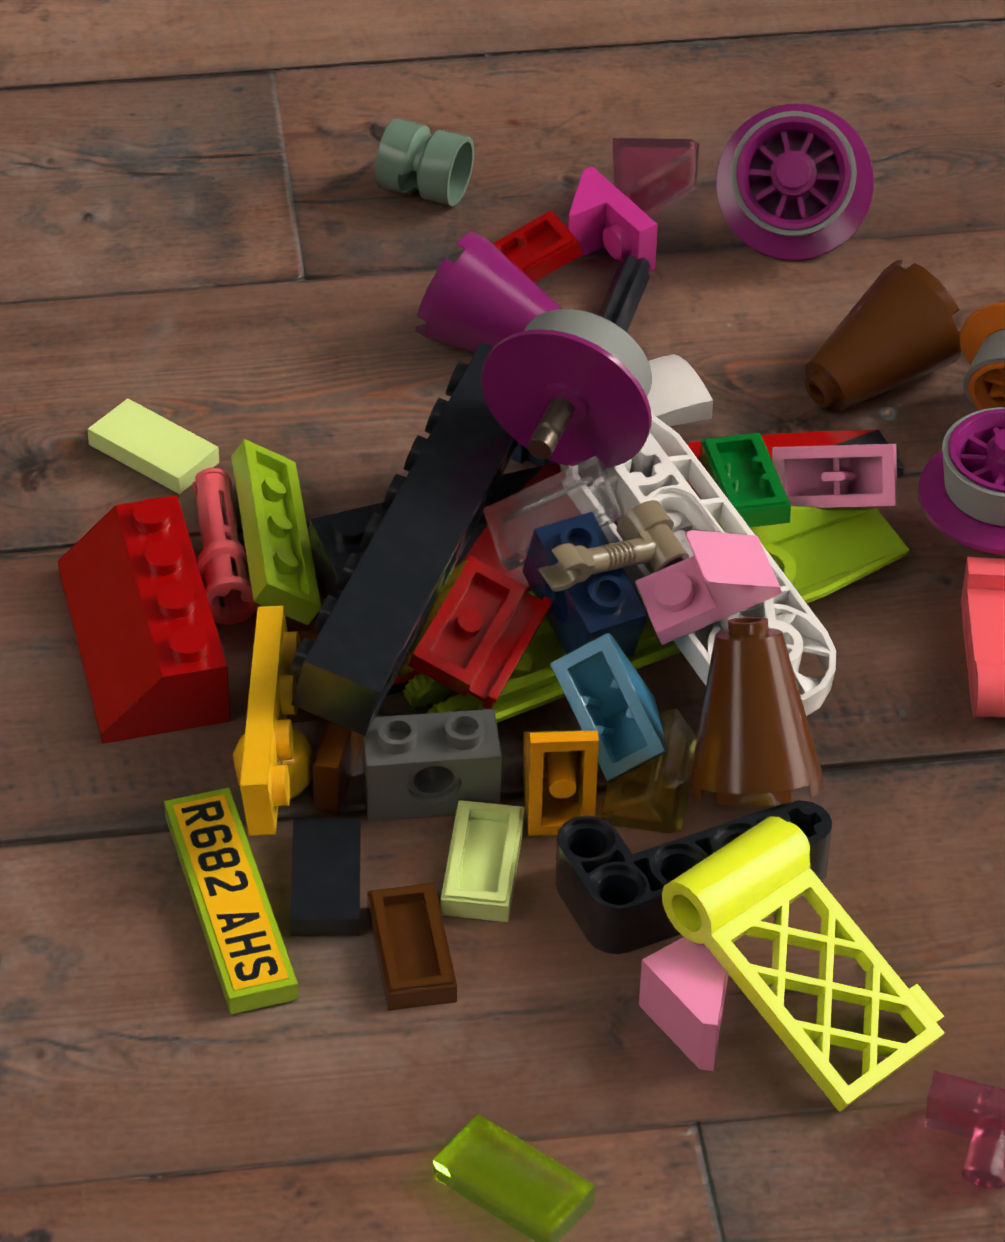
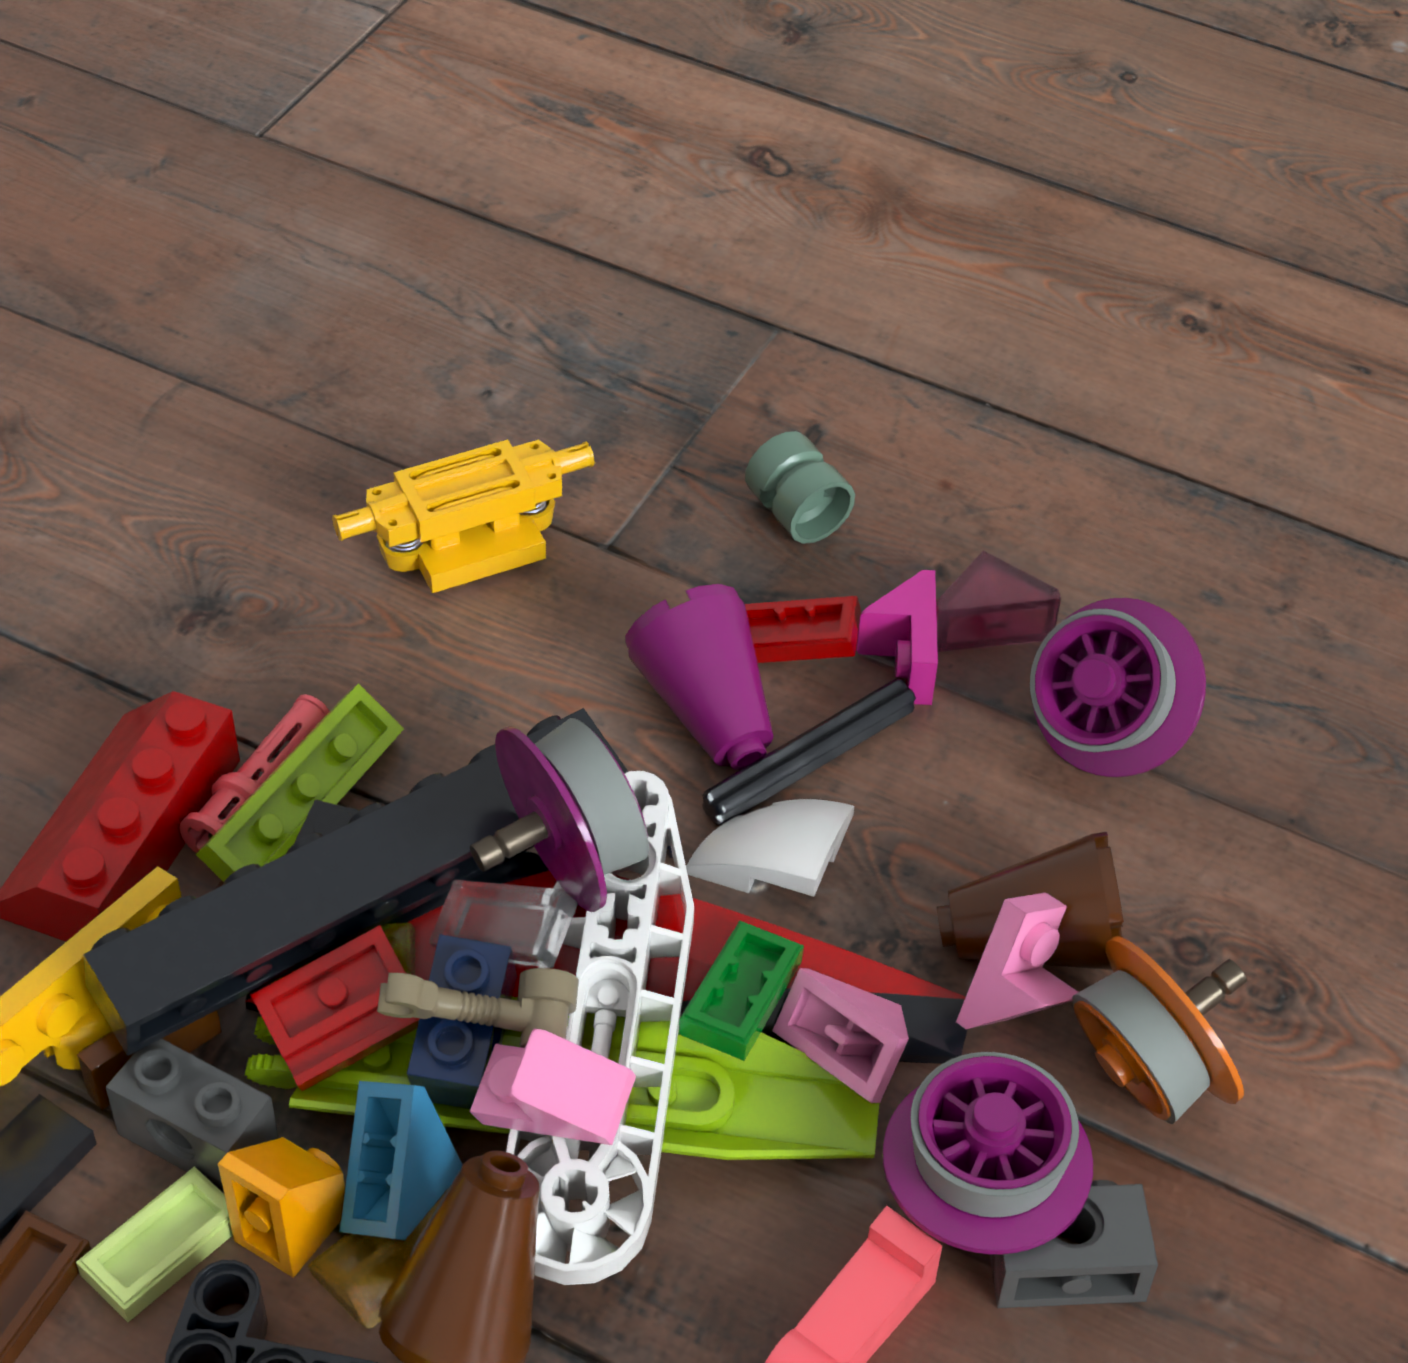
camera: 35 degrees right, 5 degrees up
(153, 445) = (310, 645): yellowish green tile -> none
(194, 289) = (467, 511): none -> yellow piece
(909, 392) = (1011, 970): none -> bright pink slope

